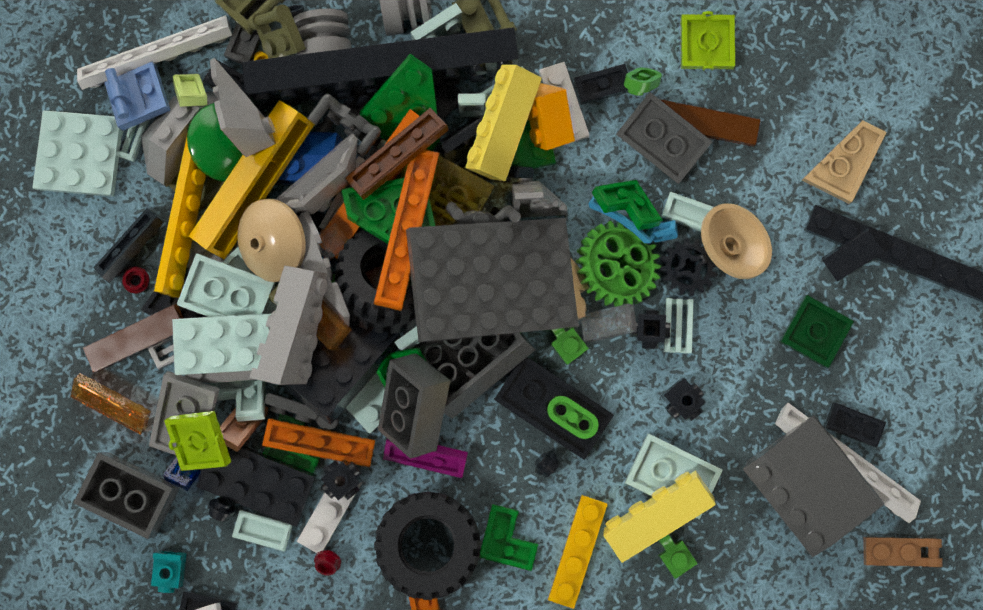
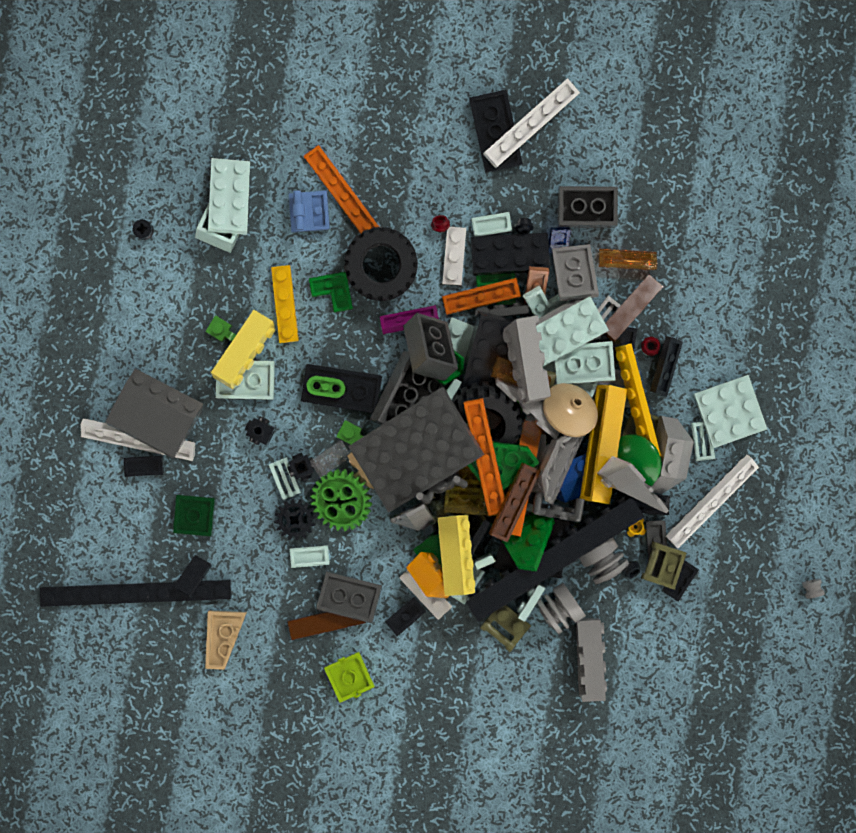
camera: 150 degrees right, 5 degrees up
(136, 95) = (708, 466): medium blue plate -> none
(175, 563) = (536, 178): teal brick -> none
(189, 90) = (674, 486): yellowish green tile -> none
(197, 441) = (557, 261): lime plate -> none
(279, 41) = (631, 543): olive plate -> none
(349, 472) = (453, 287): black brick -> none
(546, 464) = (329, 350): black plate -> none
(628, 197) = (352, 547): green tile -> none
(642, 81) = (380, 629): bright green plate -> none
(663, 232) = (329, 531): dark azure sword -> none
(736, 241) = (271, 549): tan dish -> none
(901, 551) = (79, 398): medium nougat plate -> none

